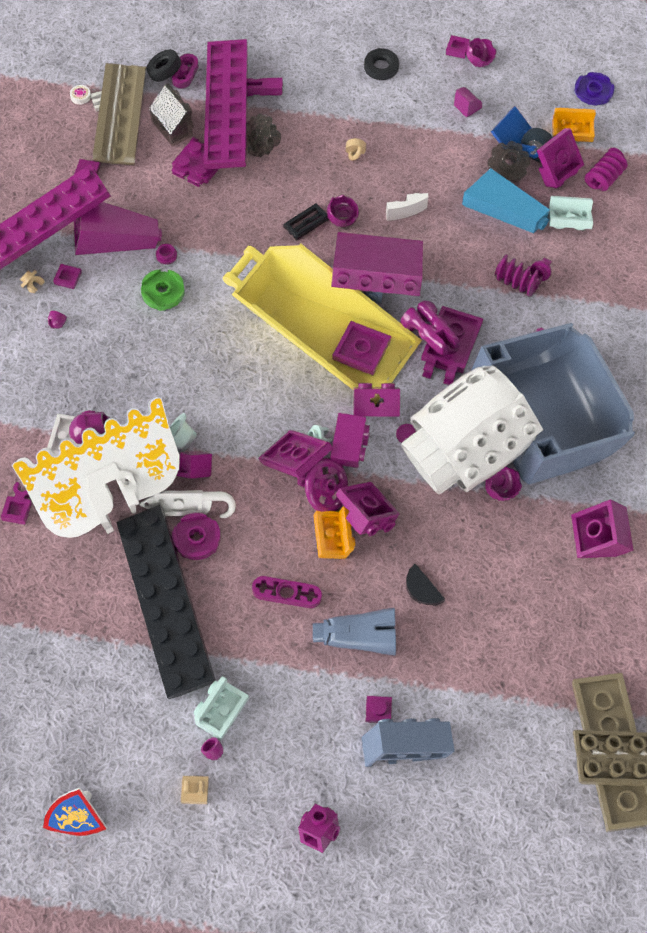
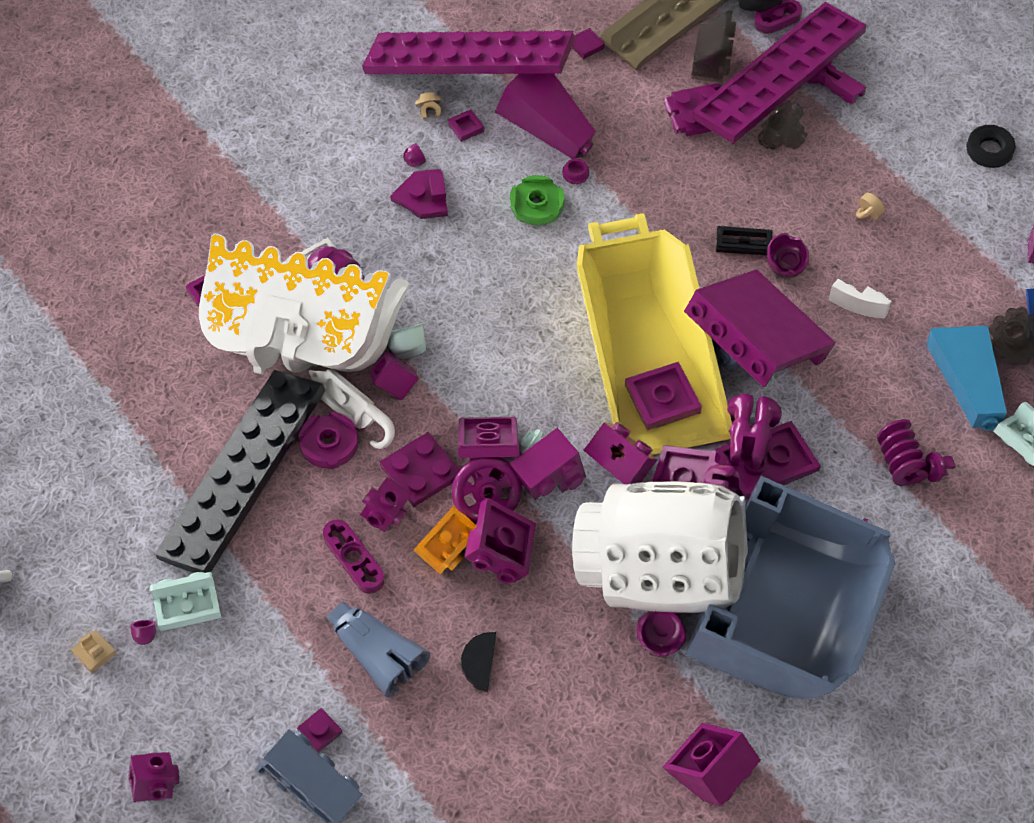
camera: 45 degrees right, 5 degrees down
(88, 339) = (423, 194): none -> magenta plate
(268, 507) = (420, 468): none -> magenta plate
(276, 545) = (385, 505): none -> magenta brick
(428, 379) = (694, 465): none -> magenta plate

